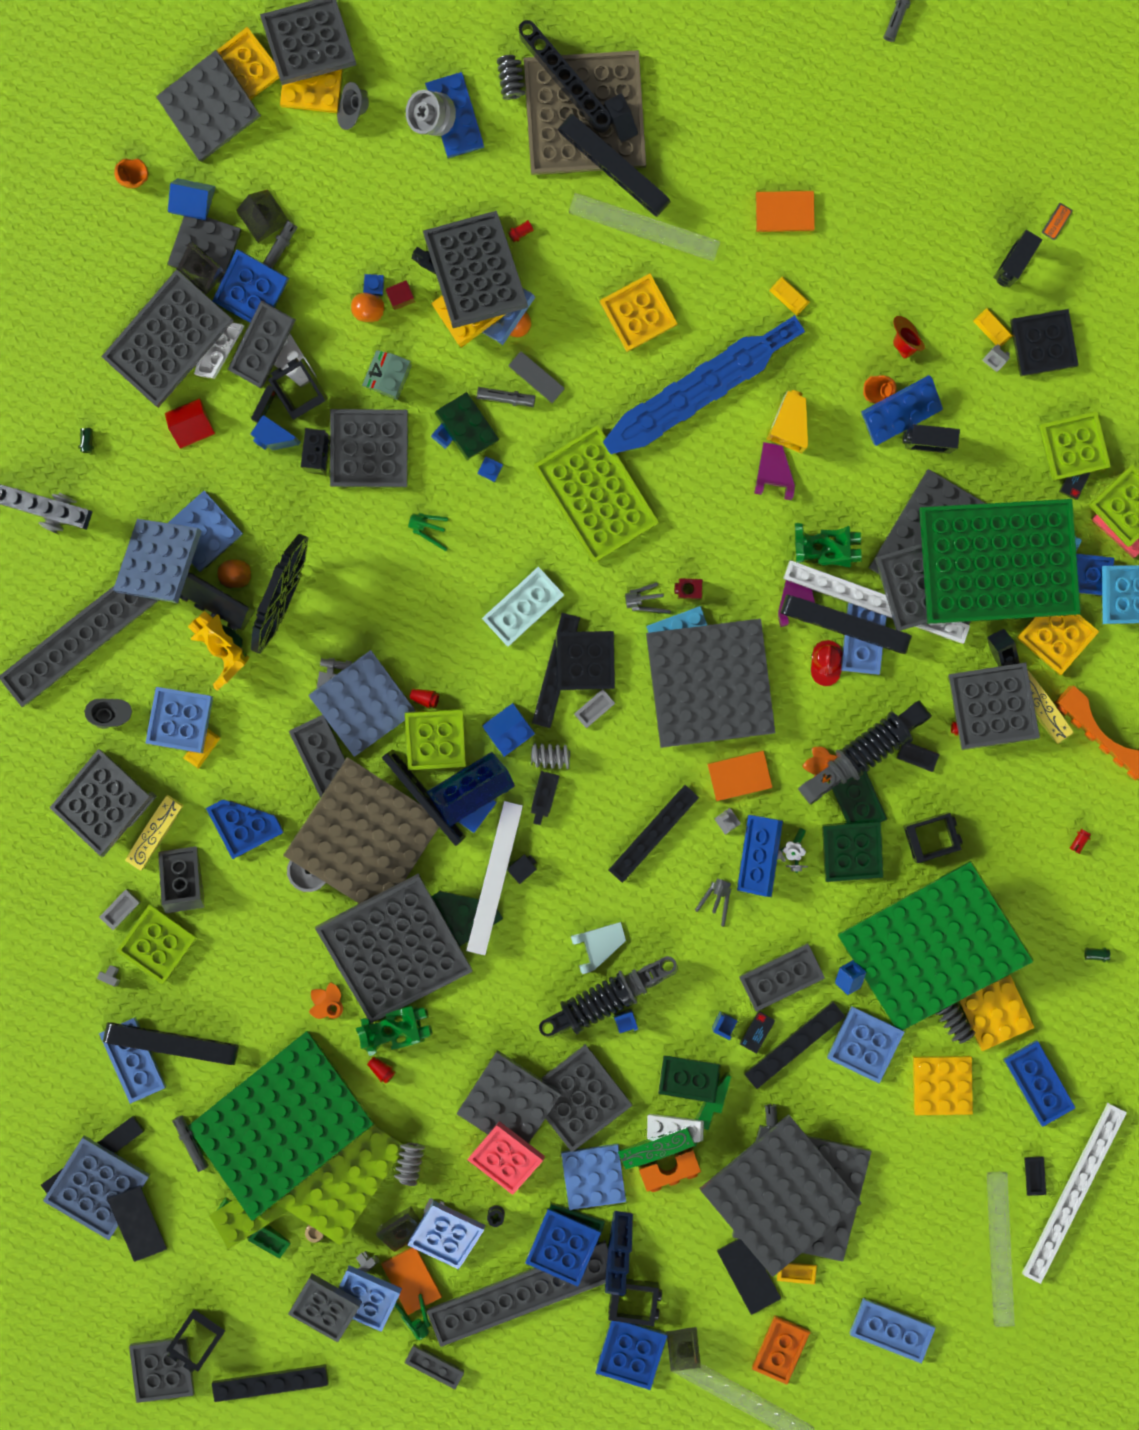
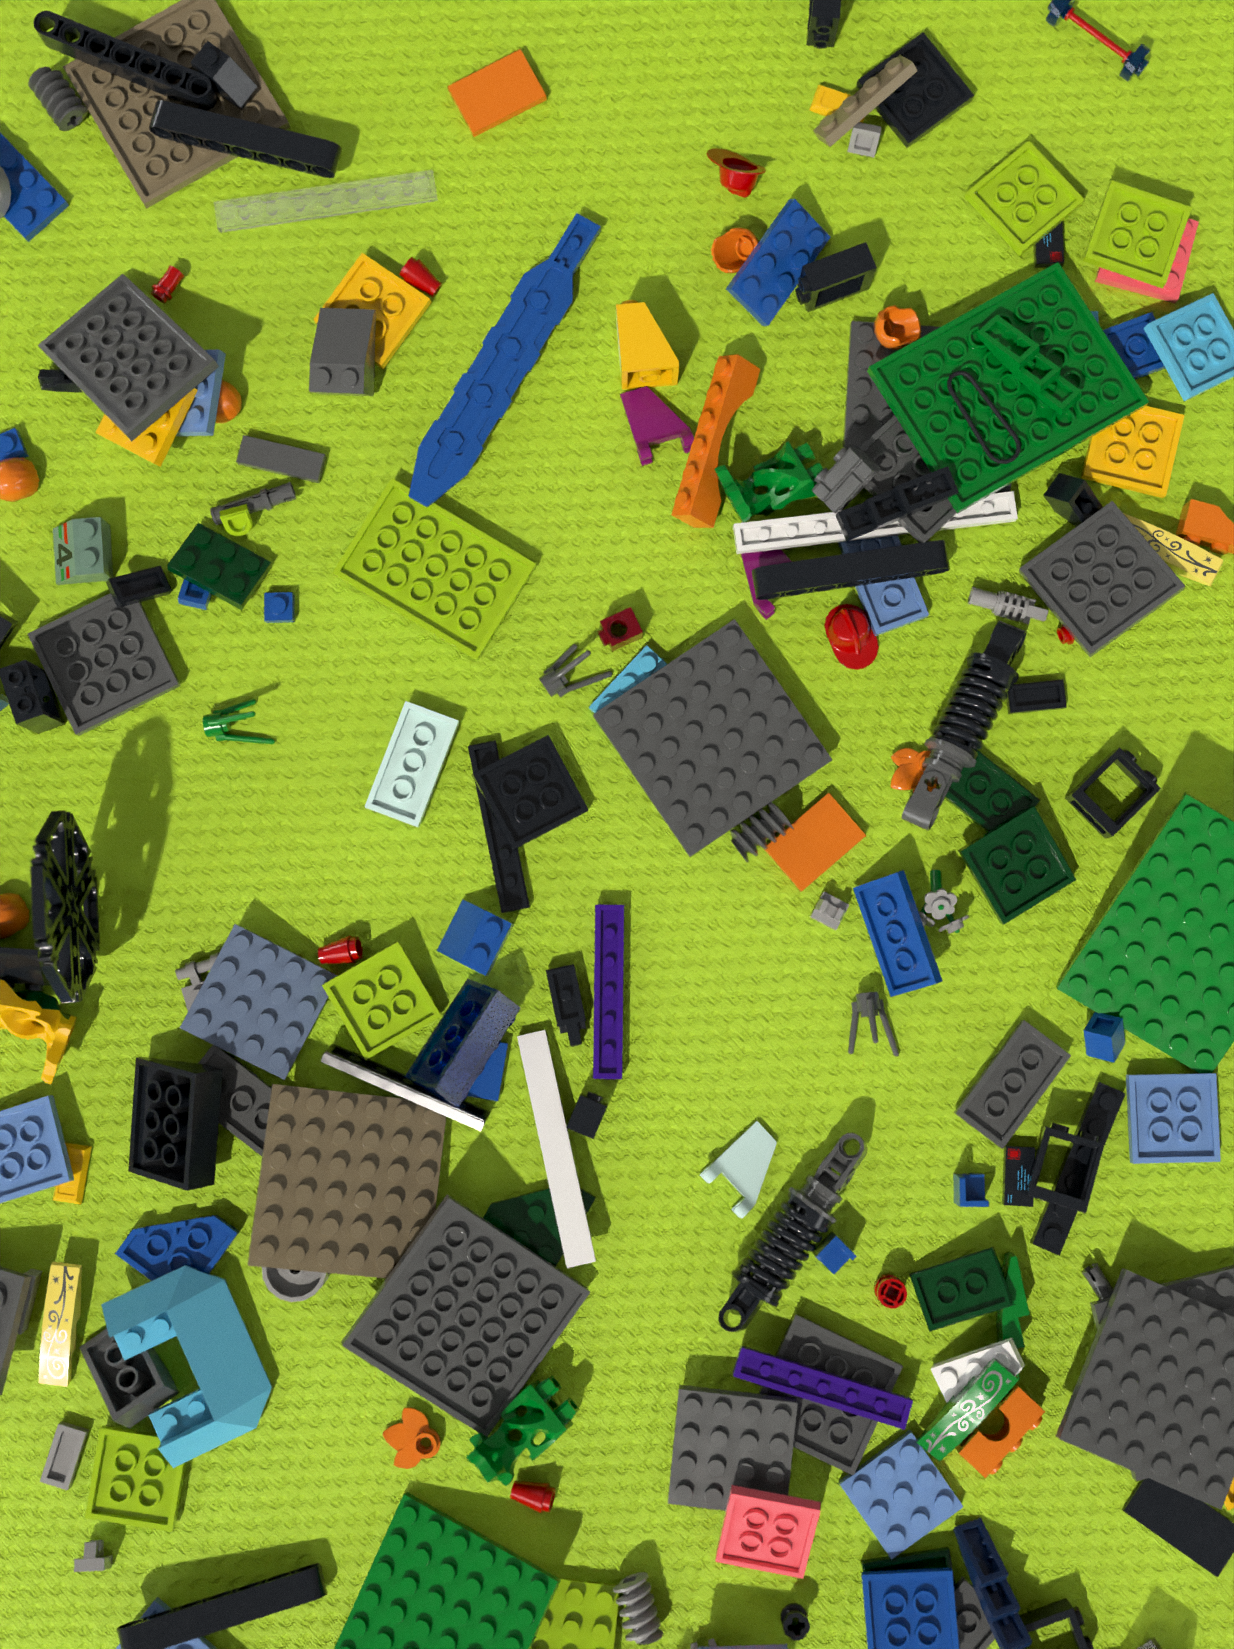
camera: 30 degrees left, 5 degrees down
(240, 894) = (218, 1350): none -> medium azure slope
(278, 749) = (175, 1122): none -> black slope
(400, 295) = (48, 442): dark red panel -> none
(412, 414) = (138, 586): none -> black tile
(491, 403) = (236, 520): none -> lime tile
(550, 756) = (548, 944): light grey piece -> none
(571, 802) = (608, 992): none -> dark purple plate
(579, 1093) = (822, 1387): none -> dark purple plate
(594, 708) = (575, 851): light grey tile -> none
(607, 332) = (343, 353): none -> dark grey slope
(645, 1056) = (888, 1285): none -> red wheel
(653, 833) = (739, 978): black plate -> none
(678, 306) = (420, 277): none -> red cone
(710, 753) = (760, 831): none -> dark grey piece
(780, 528) = (699, 492): none -> orange arch
(789, 296) = (557, 195): yellow tile -> none
(807, 1031) = (1086, 1139): none -> black window
(871, 568) = (845, 479): none -> dark grey brick
(893, 600) = (897, 503): none -> black slope
(930, 692) = (1008, 605): none -> light grey hinge
(952, 490) = (897, 327): none -> orange hair
(964, 573) = (994, 409): none -> black piece
(1008, 336) = (865, 100): none -> dark tan plate
(1018, 555) = (1029, 366): none -> green slope

